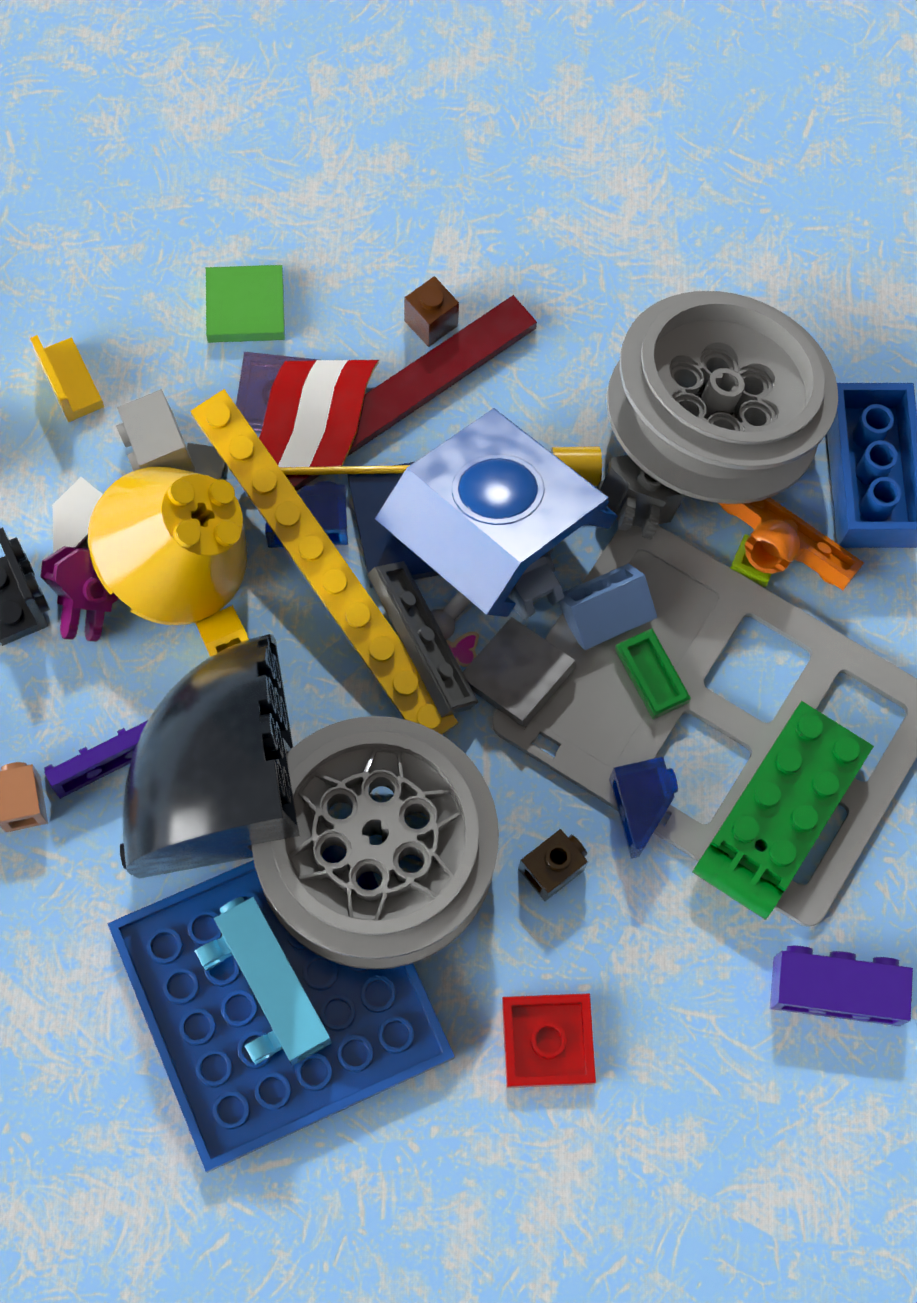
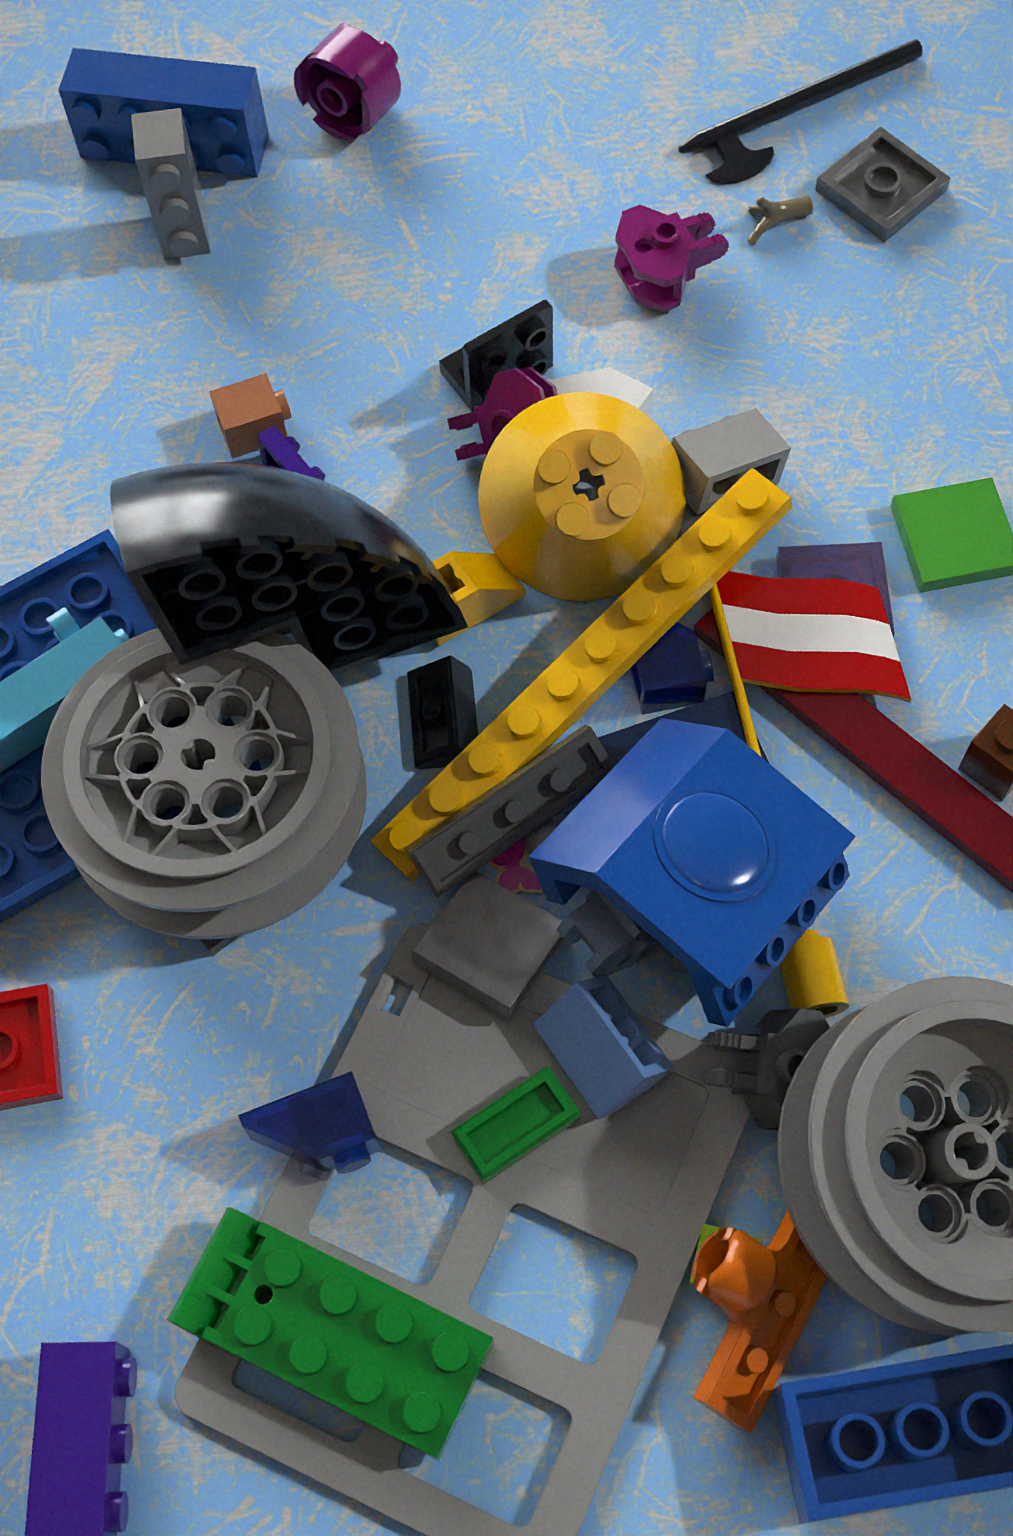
camera: 90 degrees right, 5 degrees down
(68, 378) = (792, 357): yellow panel -> none
(325, 684) = (441, 711): none -> black slope
(554, 864) = (224, 1022): dark brown brick -> none

